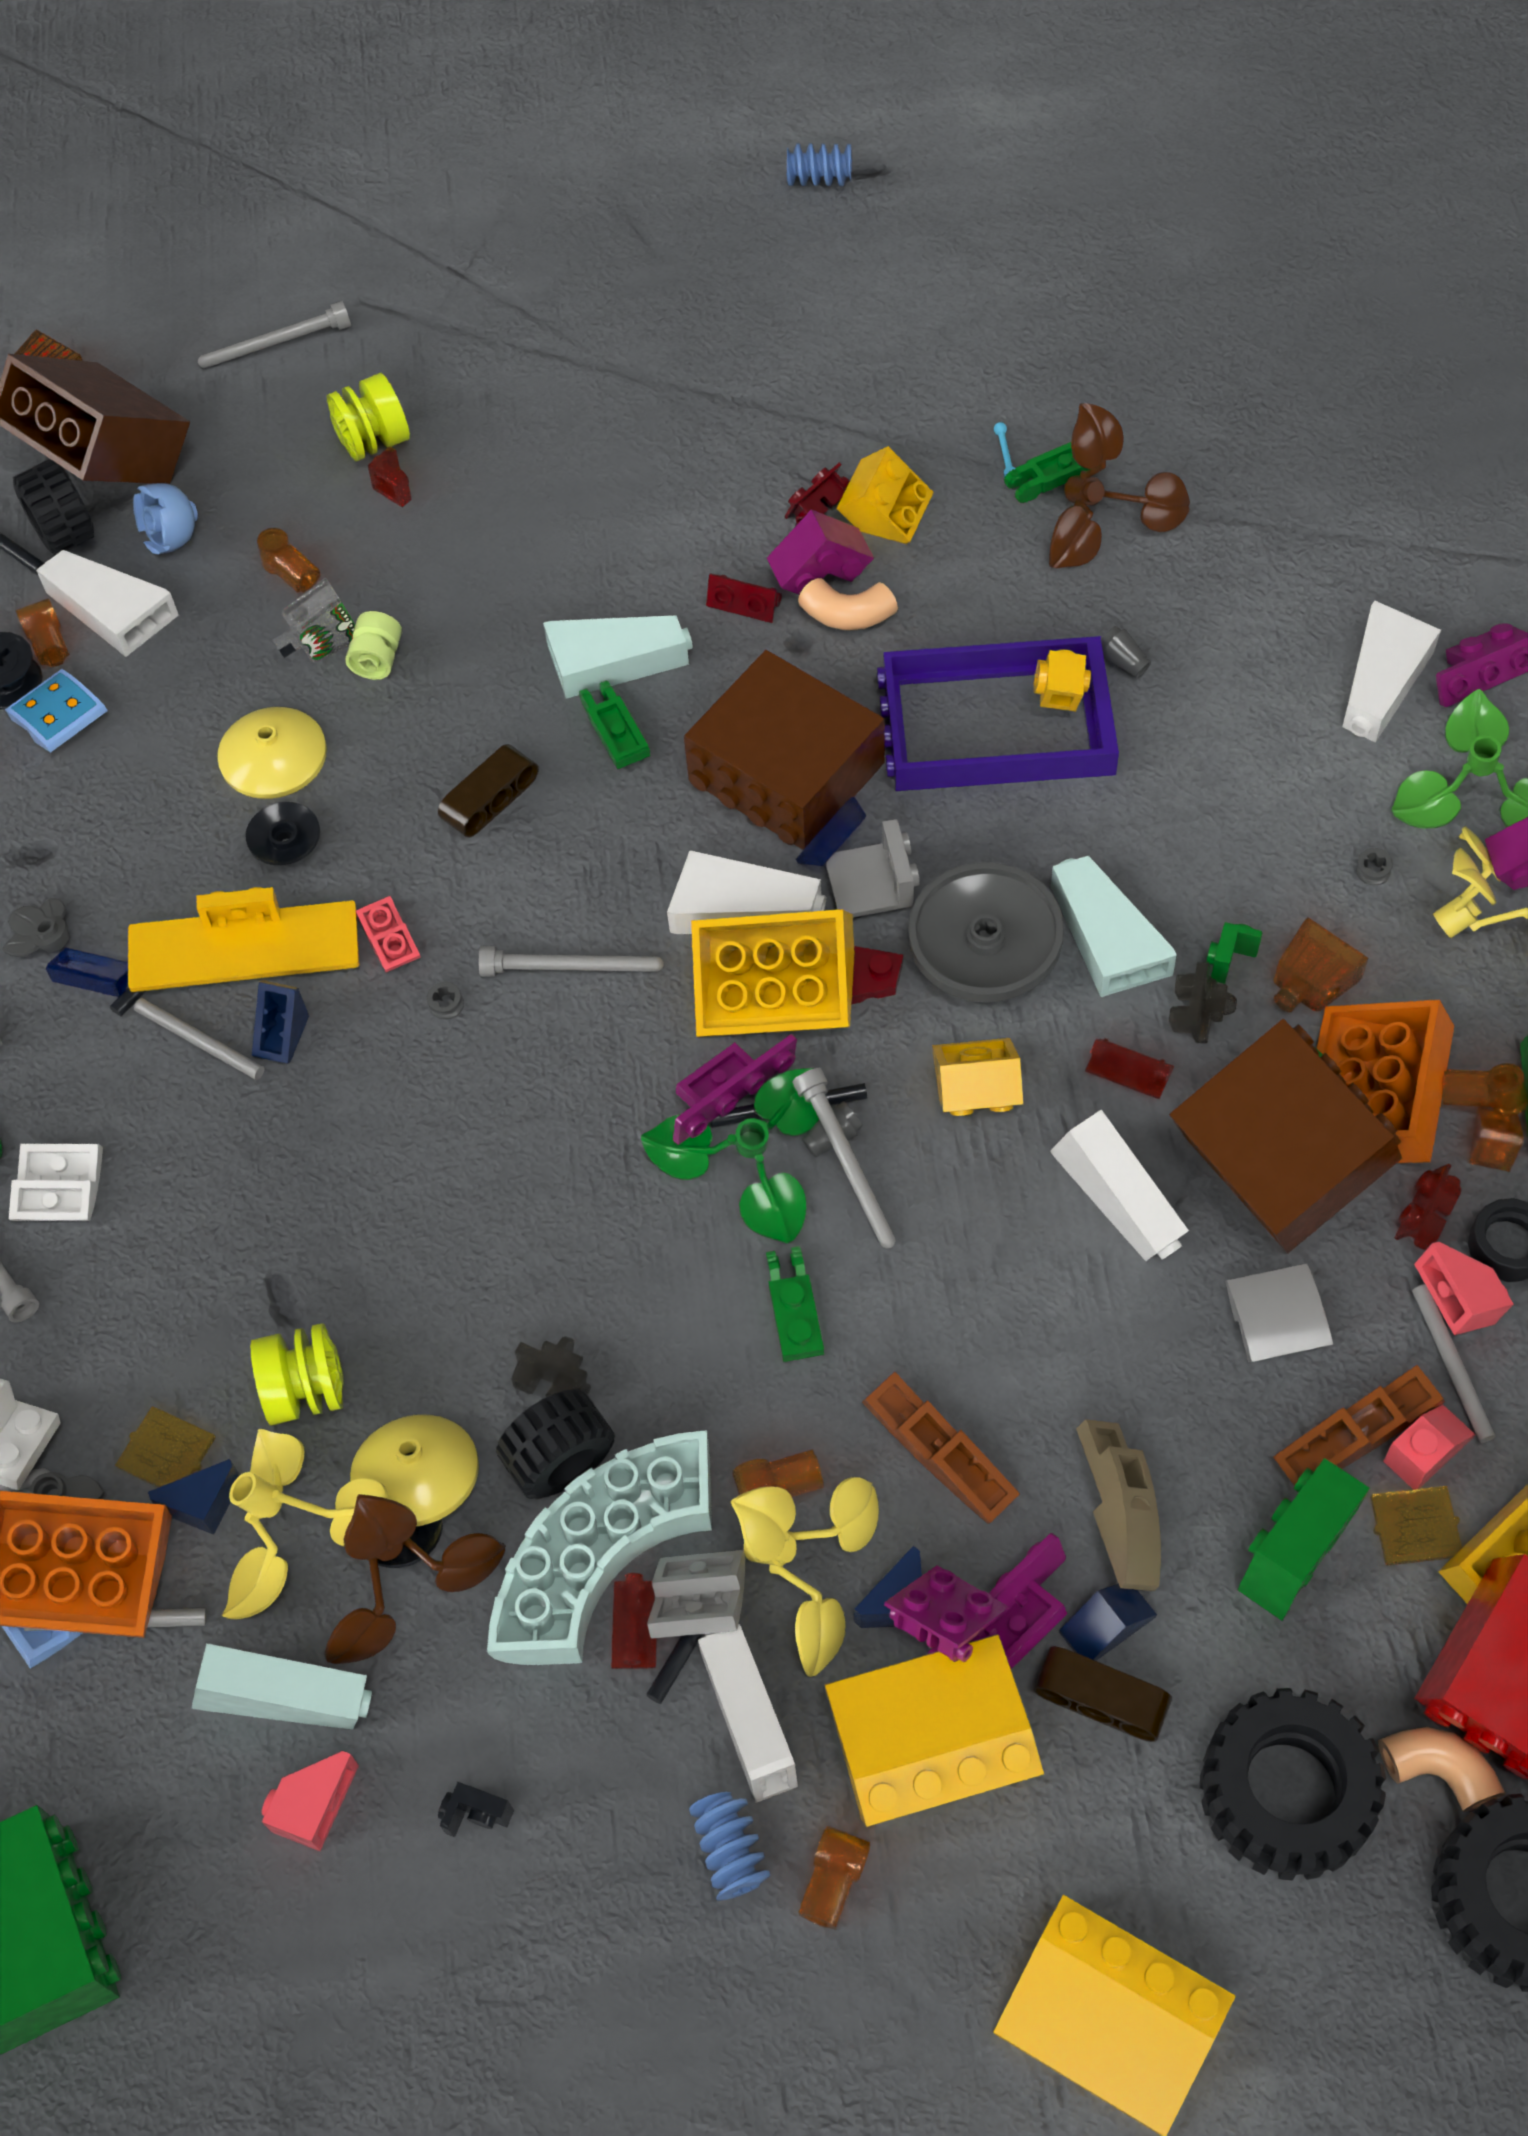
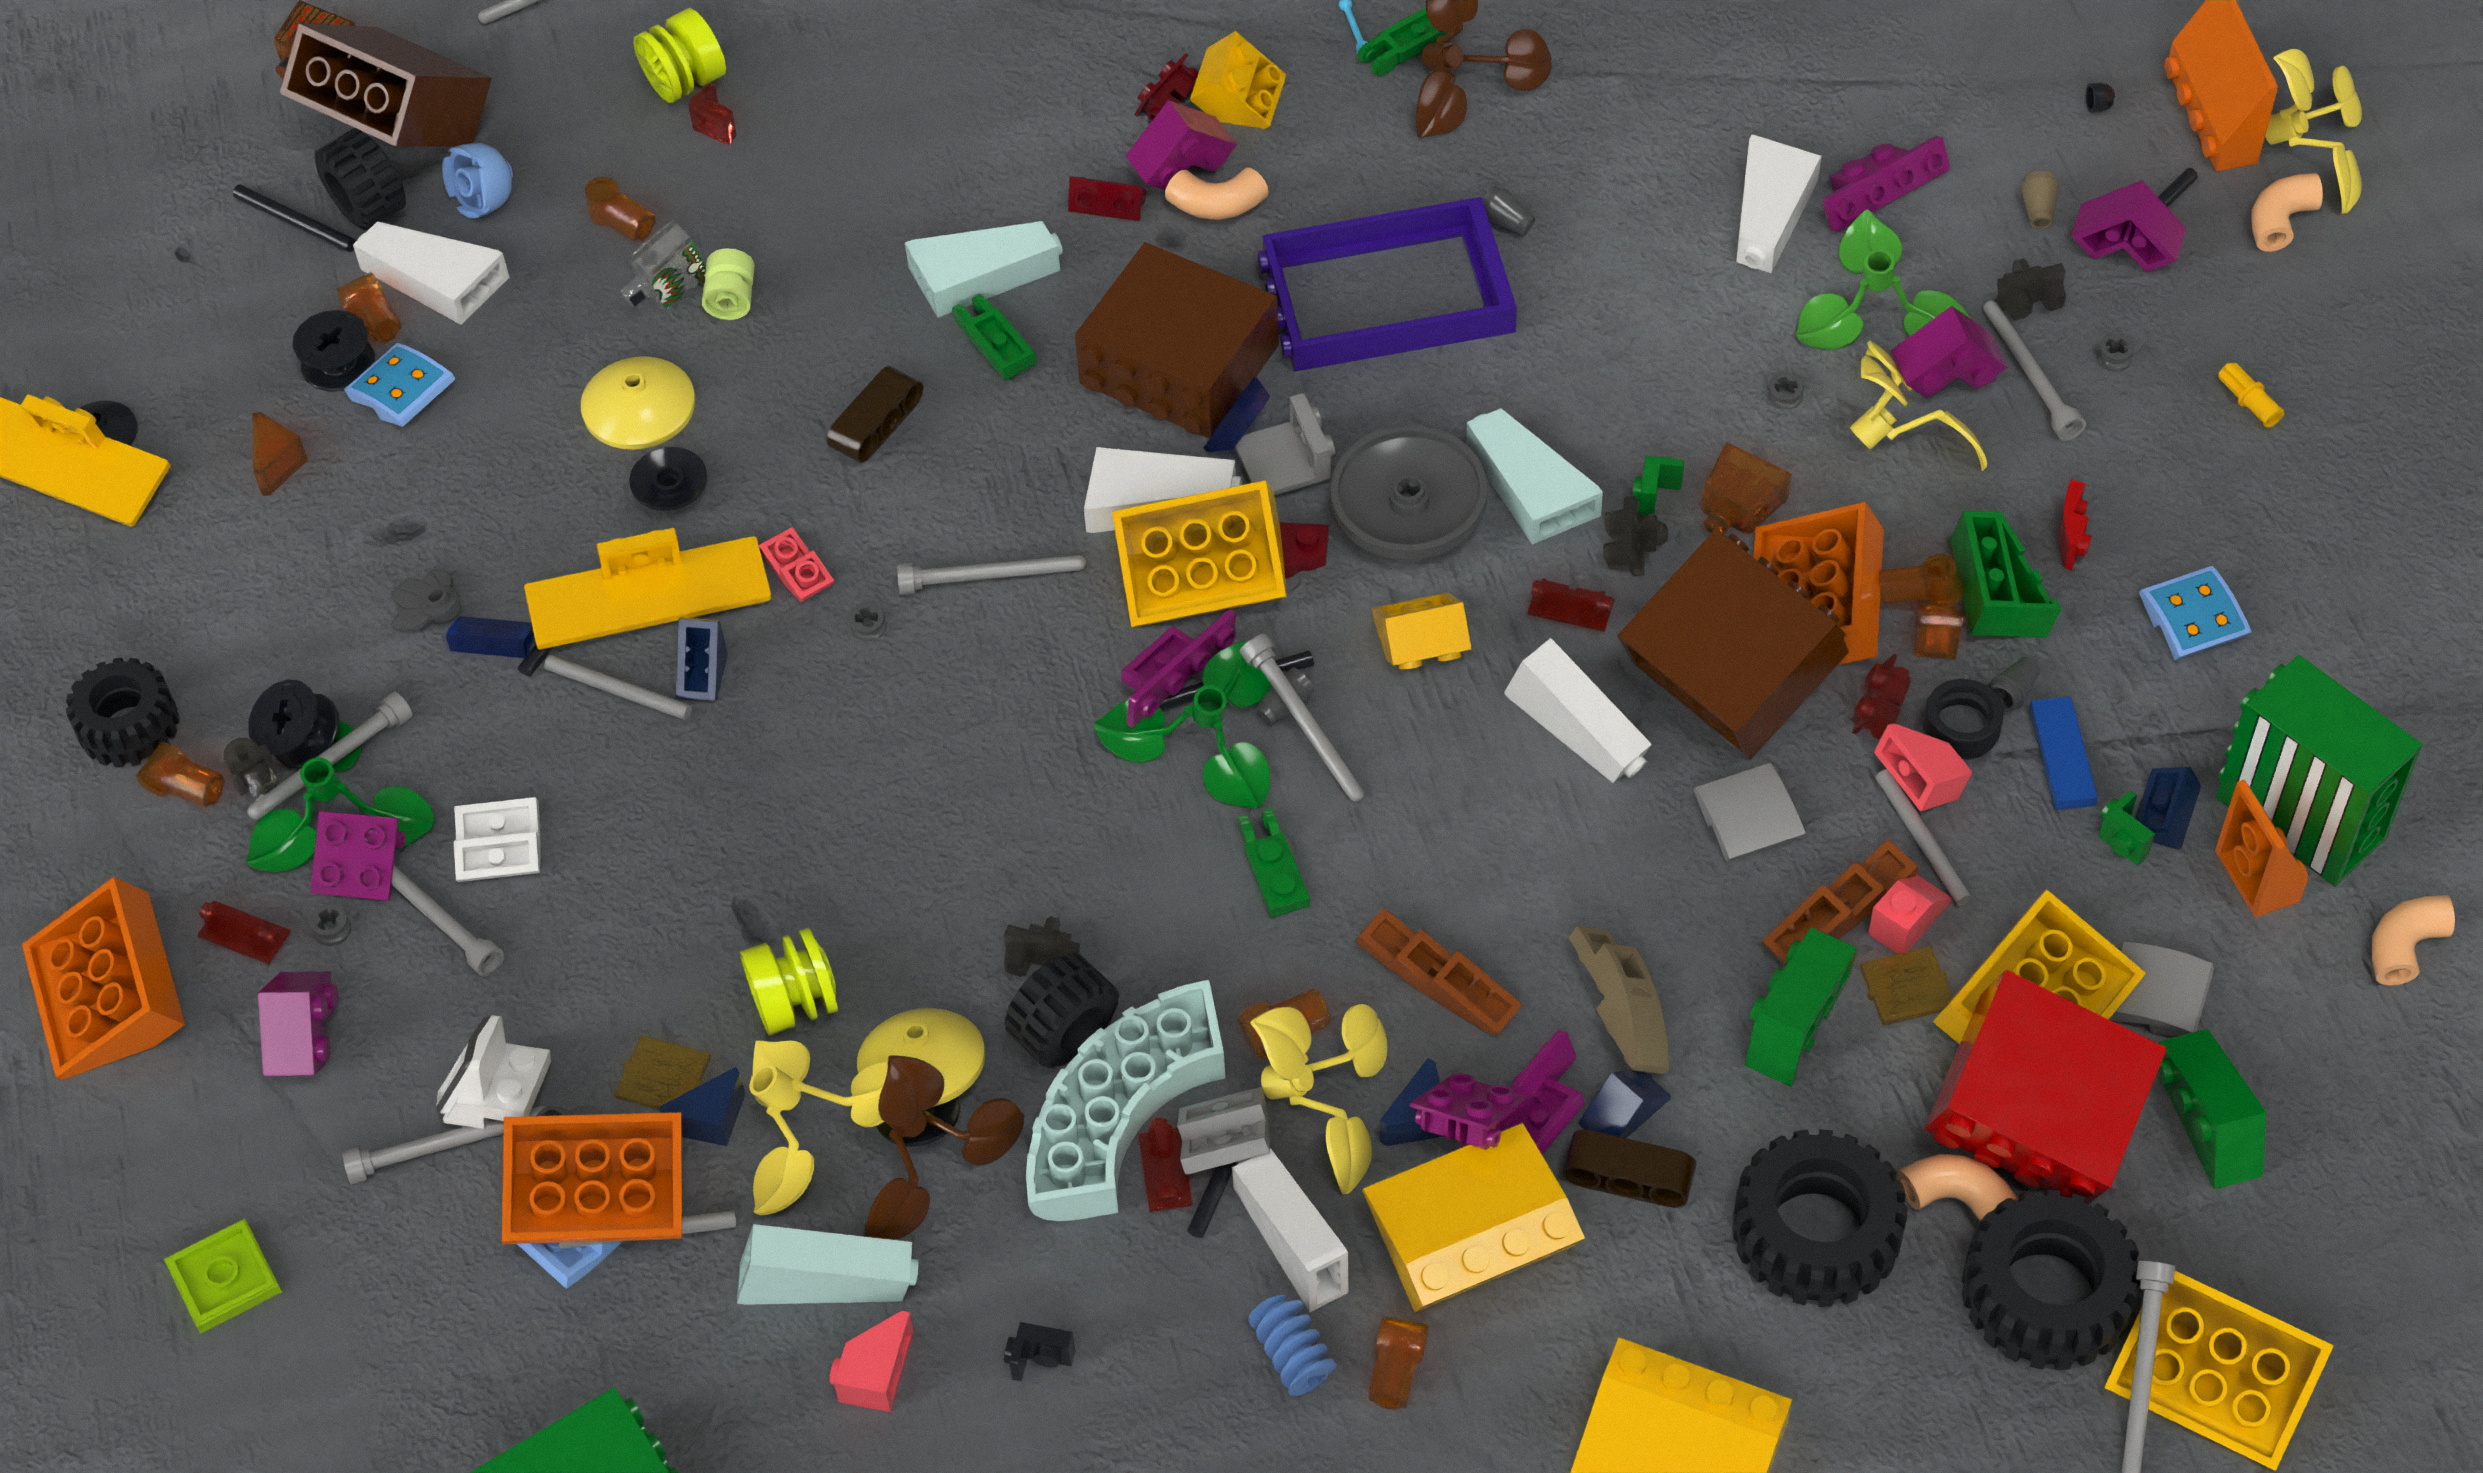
camera: 10 degrees left, 5 degrees down
(1061, 680) = (1448, 243): yellow brick -> none

